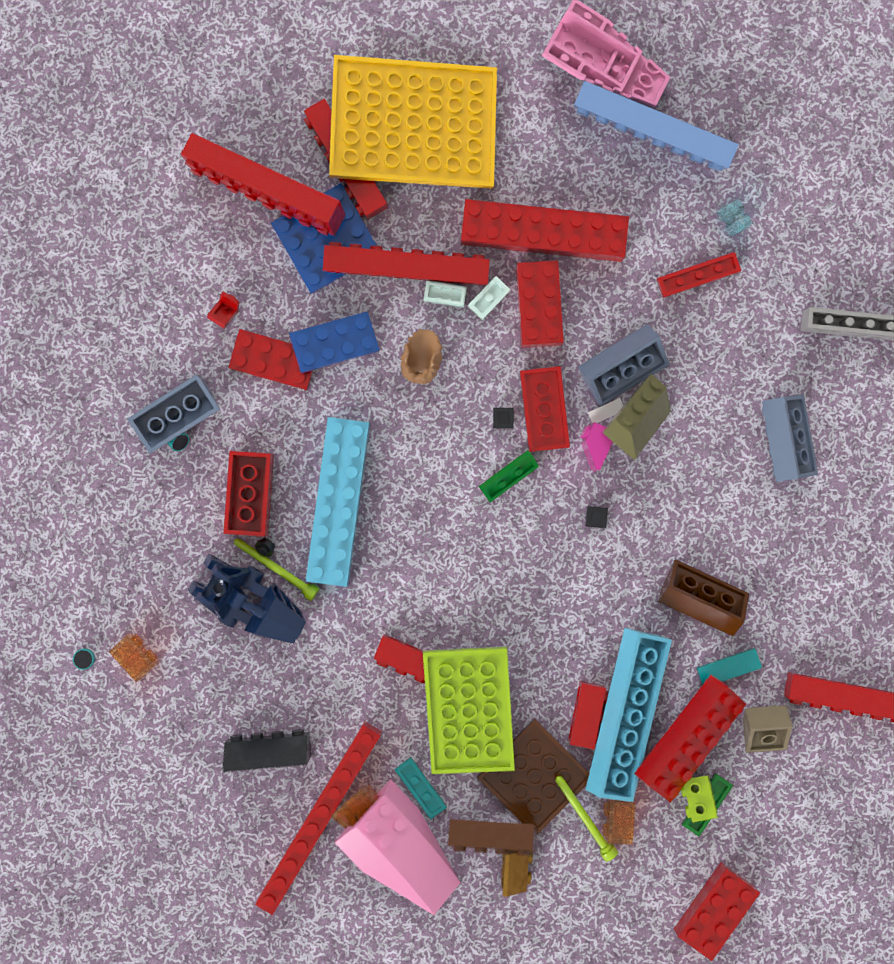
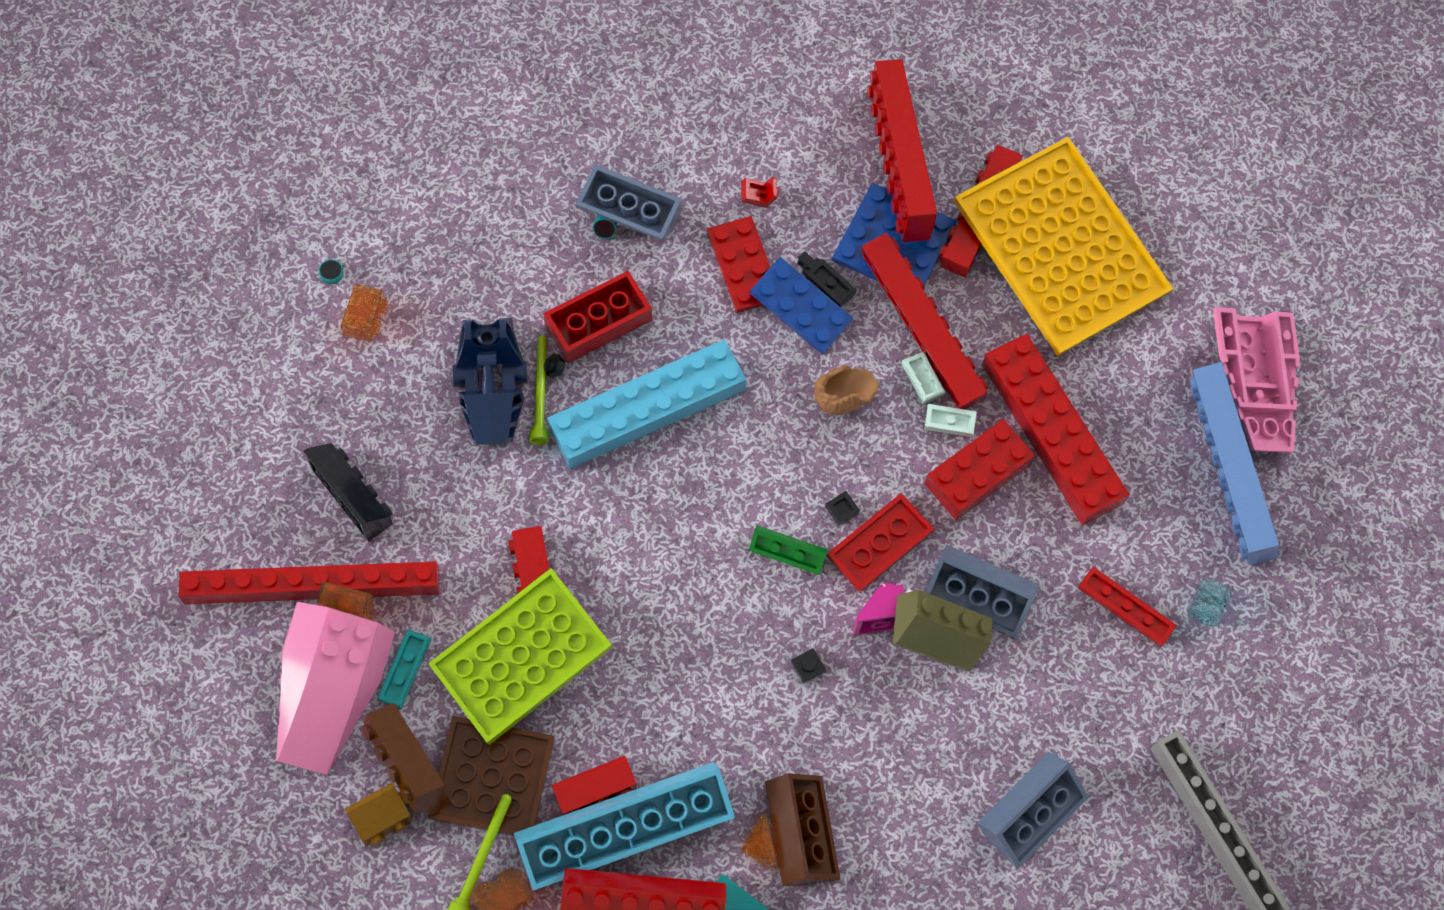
camera: 55 degrees right, 20 degrees down
(325, 309) = (826, 279): none -> black hinge
(695, 632) = (760, 845): none -> clear orange slope

